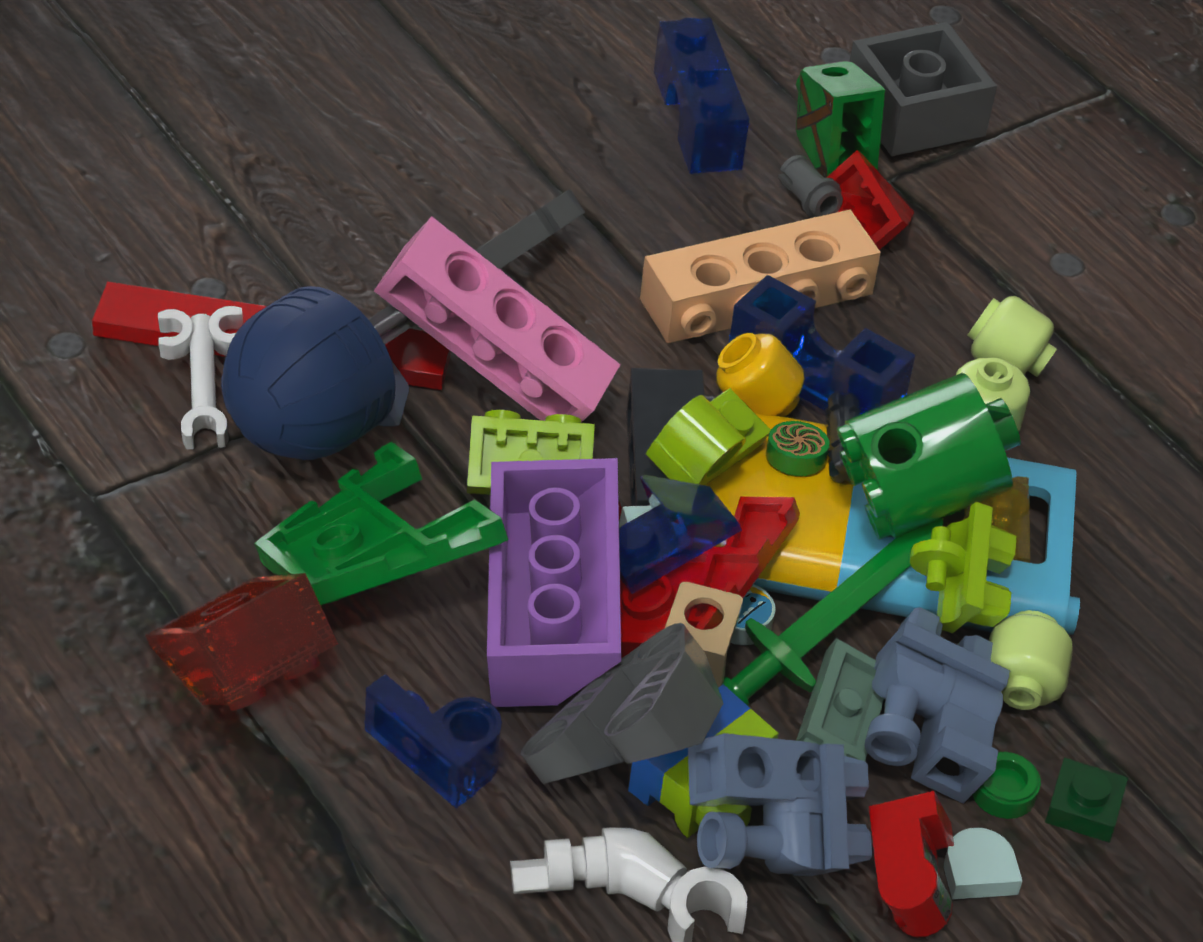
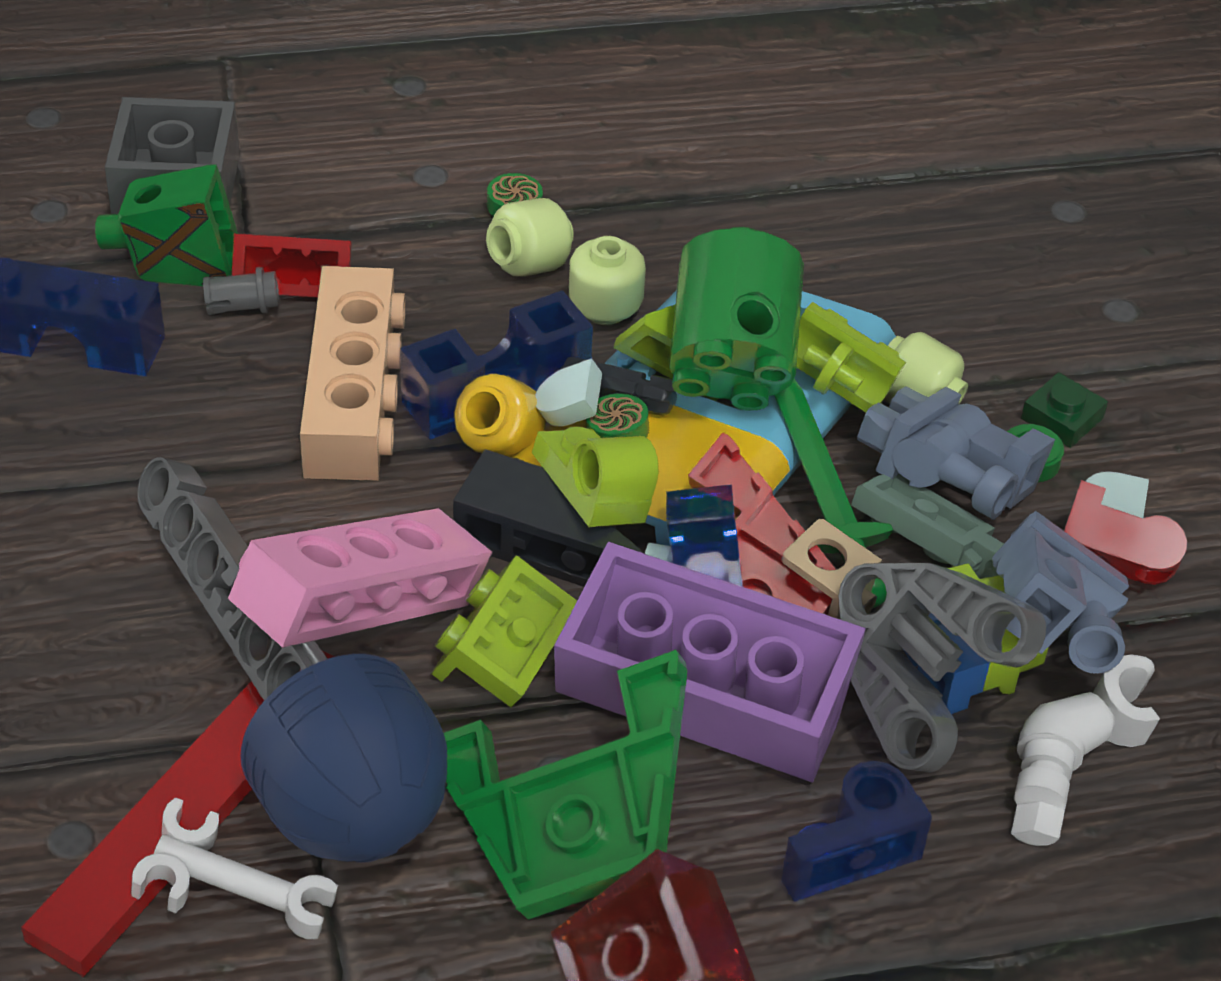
camera: 65 degrees left, 0 degrees up
(802, 403) = (570, 394): none -> light aqua tile
(1074, 321) = (510, 189): none -> tile

